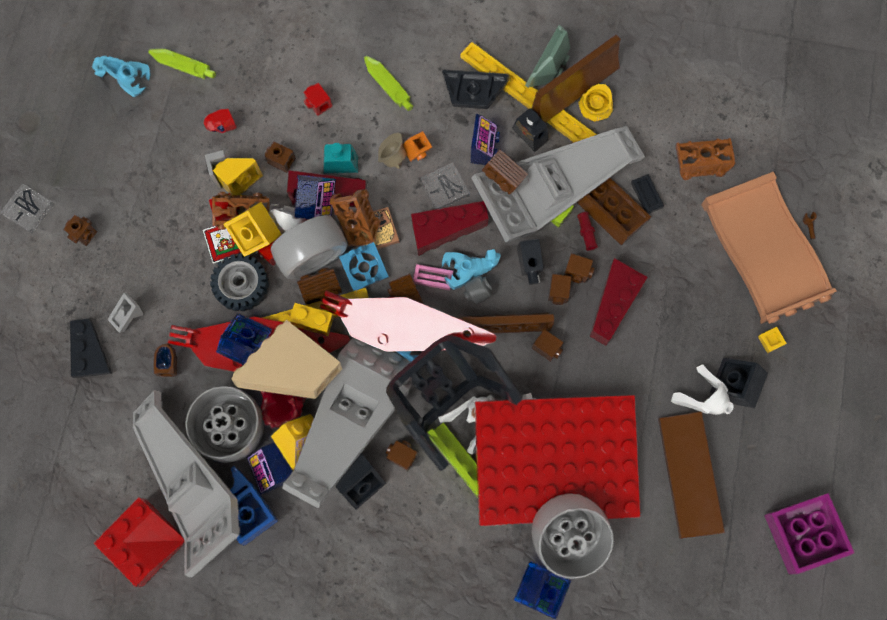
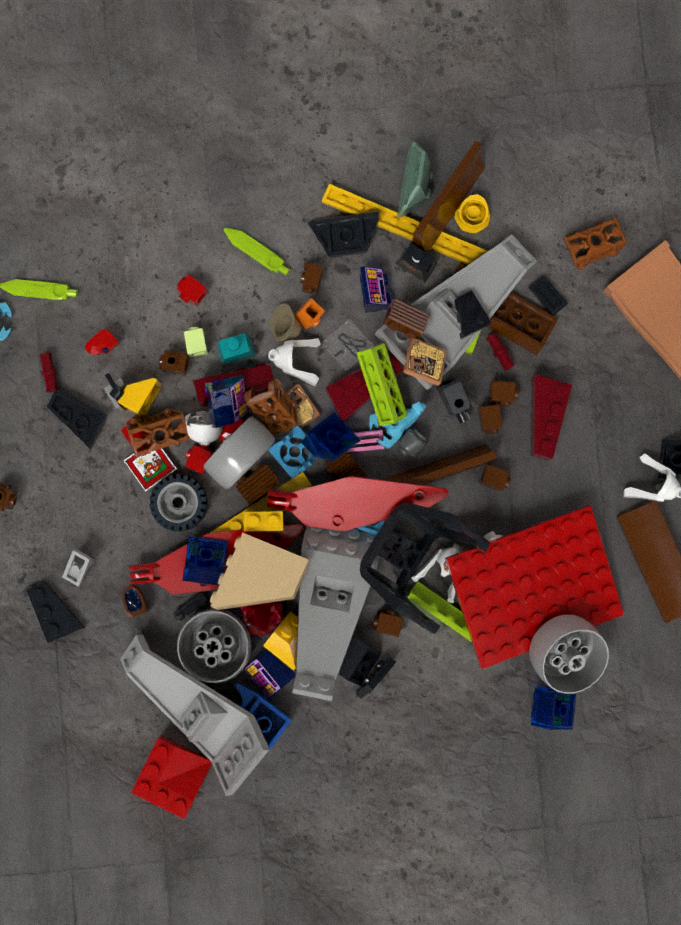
camera: 20 degrees left, 10 degrees up
(163, 134) = (48, 372): none -> dark red pin
(176, 180) = (78, 417): none -> black wing
(214, 160) = (116, 392): none -> black hand
(216, 382) = (190, 606): none -> black axle
(252, 229) = (178, 450): yellow slope -> none
(305, 144) = (195, 342): none -> yellowish green brick
(368, 505) = (373, 680): none -> black wing
(378, 179) = (283, 359): none -> white piece
(399, 260) = (330, 439): none -> clear blue slope
(430, 117) = (311, 278): none -> reddish brown brick
(461, 224) = (380, 386): none -> lime fence
(511, 215) = (424, 361): none -> tile
(567, 185) = (470, 314): none -> black wing

